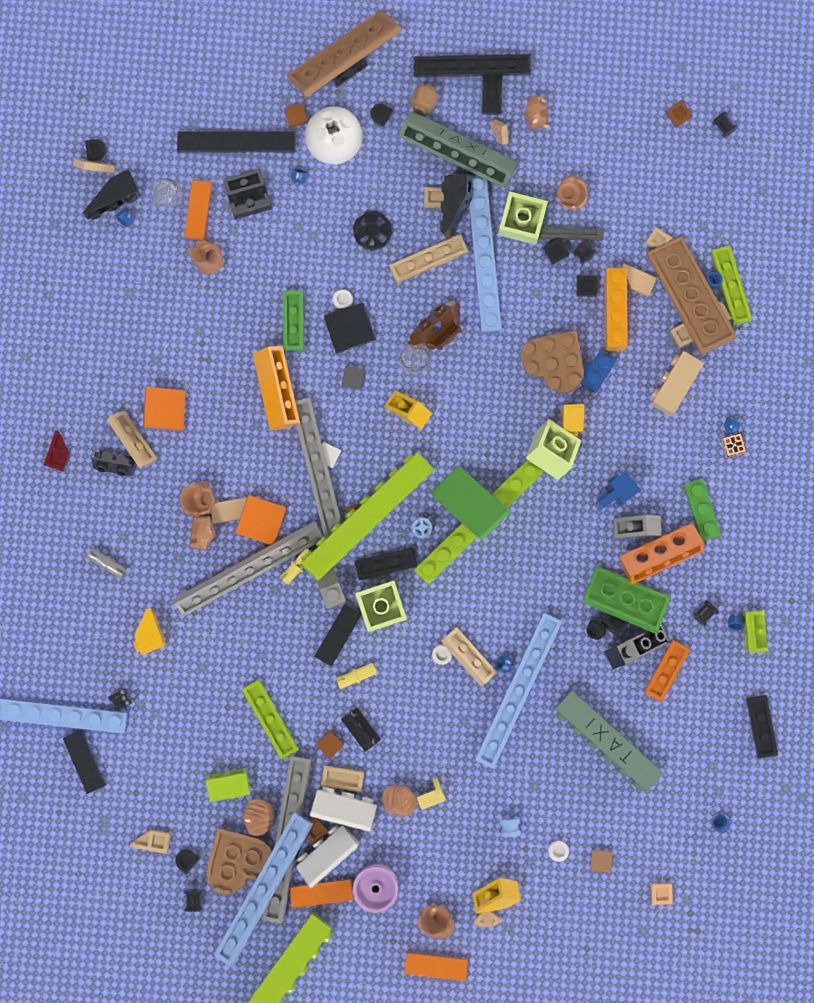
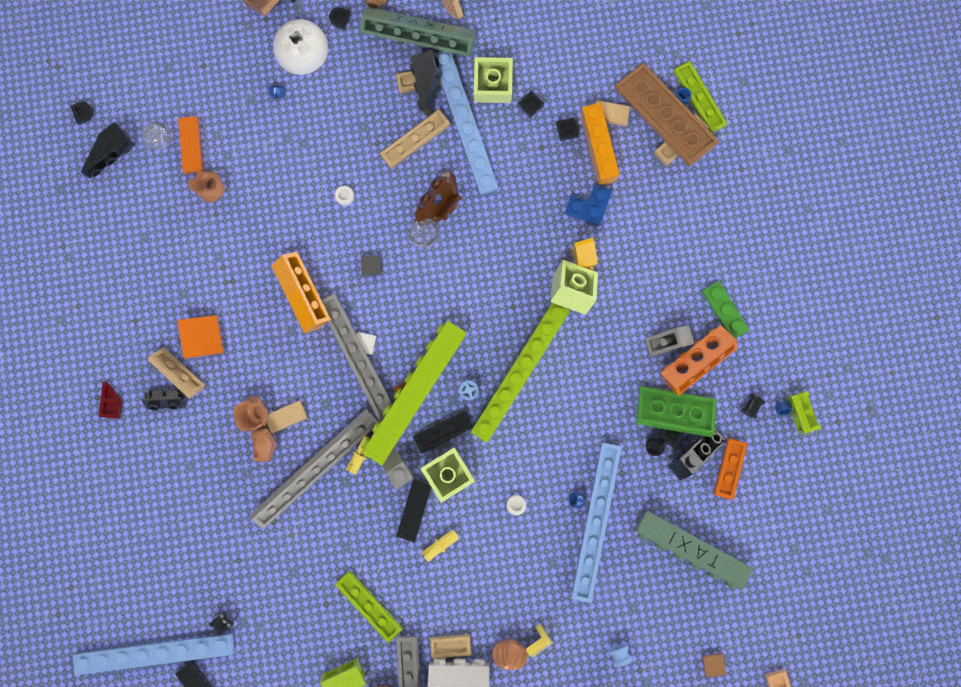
camera: 10 degrees left, 0 degrees up
(93, 166) = (83, 127): tan tile -> none
(106, 563) = (179, 495): light grey pin -> none
(124, 218) = (123, 168): blue hinge -> none
(148, 634) = (234, 553): yellow slope -> none
(236, 141) = (211, 74): black tile -> none
(247, 194) = (233, 119): black slope -> none
(260, 520) = (315, 419): orange tile -> none
(293, 321) = (302, 226): bright green plate -> none
(296, 115) = (261, 37): dark orange tile -> none
(330, 744) = (431, 616): dark orange tile -> none
(350, 328) = (357, 220): black slope -> none
(361, 729) = (457, 595): black hinge -> none
(372, 230) = (356, 125): black piece -> none
(408, 409) = (429, 282): yellow slope -> none
(469, 656) = (542, 501): tan plate -> none
(470, 503) = (509, 356): bright green tile -> none
(556, 360) = (555, 204): medium nougat plate -> none
(558, 851) = (671, 665): white tile -> none
(572, 192) = (533, 46): nougat hair -> none
(572, 233) = (542, 84): dark grey axle -> none
(584, 252) = (557, 99): black wheel -> none
(620, 488) = (645, 309): blue brick -> none
(657, 238) = (621, 70): tan tile -> none
(676, 383) = (672, 198): tan brick -> none
(721, 823) = (815, 600): blue hinge -> none
(731, 425) = (733, 225): blue hinge -> none
(733, 445) = (739, 243): tile -> none
(761, 726) = (832, 500): black tile -> none

